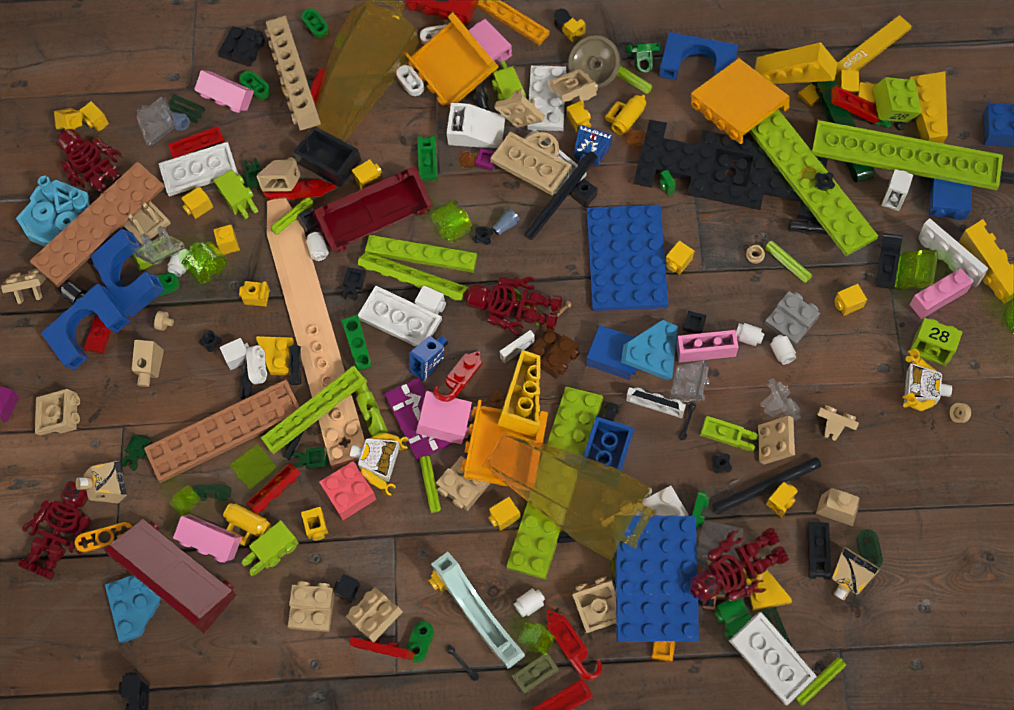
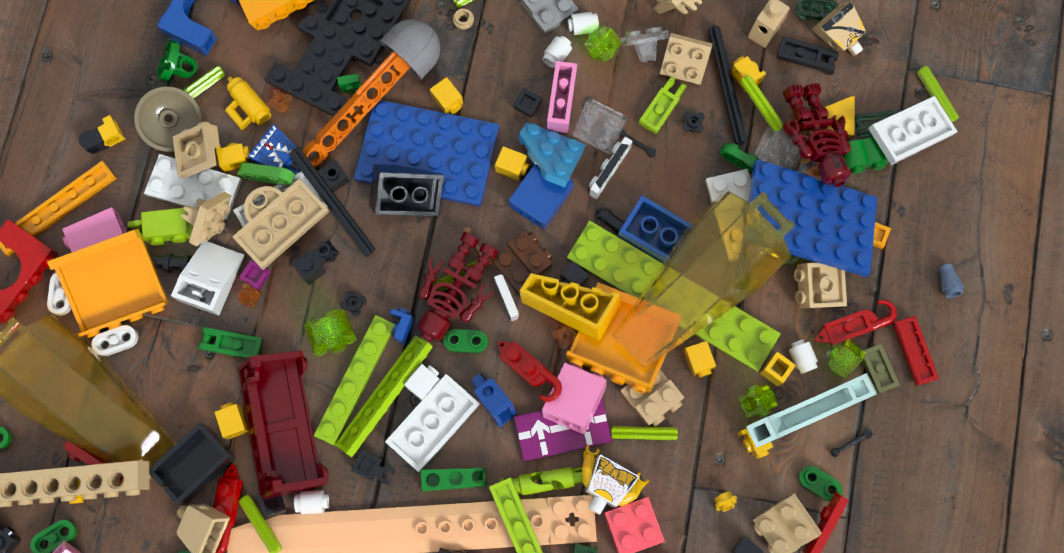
camera: 80 degrees left, 10 degrees up
(385, 562) = (725, 501): none -> yellow plate
(473, 276) = (402, 328): none -> blue bracket
(473, 325) = (465, 340): none -> green plate
(478, 569) = (758, 401): none -> clear neon green brick
(504, 194) = (311, 264): none -> black brick
(506, 221) = (344, 272): sand blue cone -> none
(510, 579) = (777, 369): none -> yellow brick
(549, 395) = (574, 274): none -> black plate
(570, 142) = (266, 174): none -> bright green beam
(584, 245) = (405, 191): none -> black slope
(635, 321) = (511, 164): none -> yellow brick
(707, 216) = (411, 47): none -> piece
(753, 513) = (761, 103): none -> lime axle
(767, 367) = (602, 44): none -> clear neon green brick

